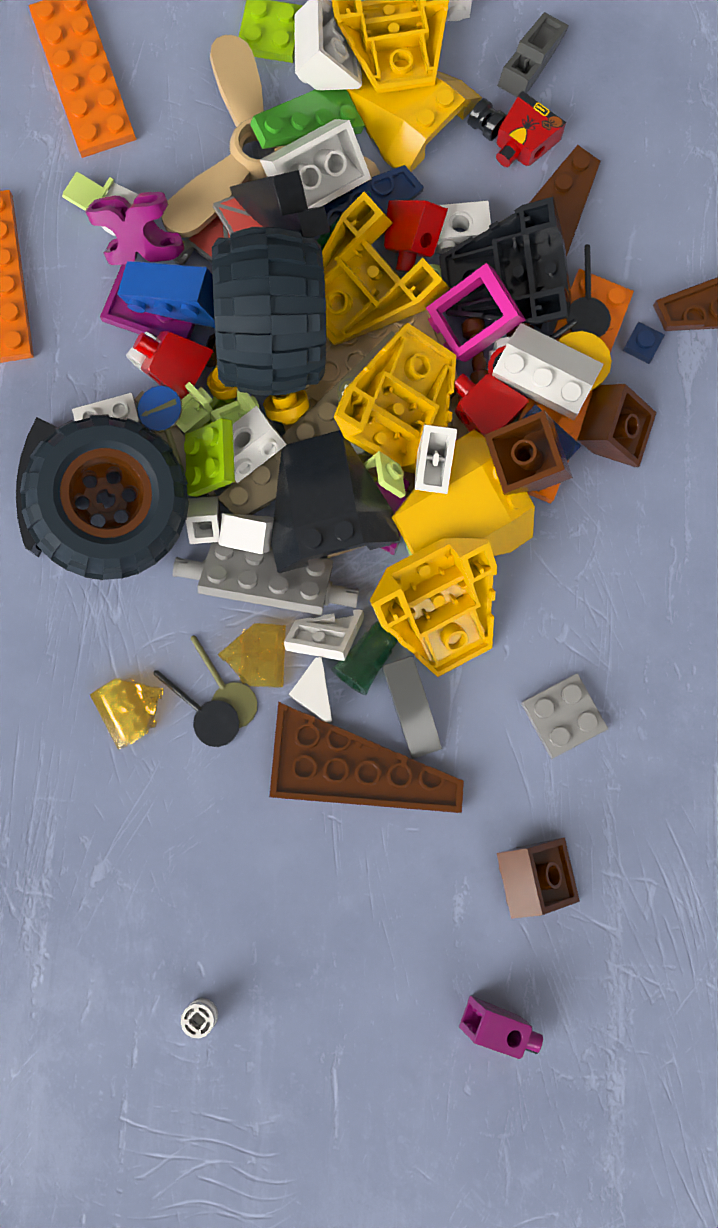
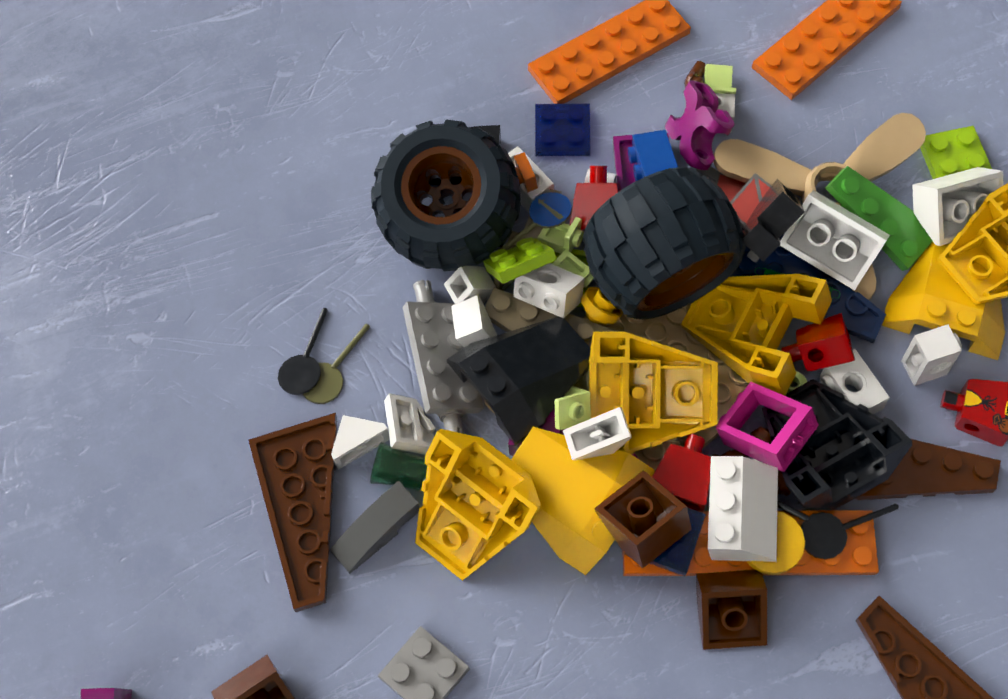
camera: 70 degrees right, 15 degrees down
(64, 362) = (562, 129): none -> clear blue plate
(70, 216) = (696, 73): none -> reddish brown arm
(114, 408) = (525, 172): none -> orange plate
(127, 709) = (283, 299): clear yellow slope -> none
(203, 1013) = (46, 465): white wheel -> none
(258, 655) = (371, 381): clear yellow slope -> none
(464, 145) = (931, 354): none -> white brick
(486, 119) = (976, 365): black wheel -> none
(643, 342) = (832, 604): dark blue plate -> none

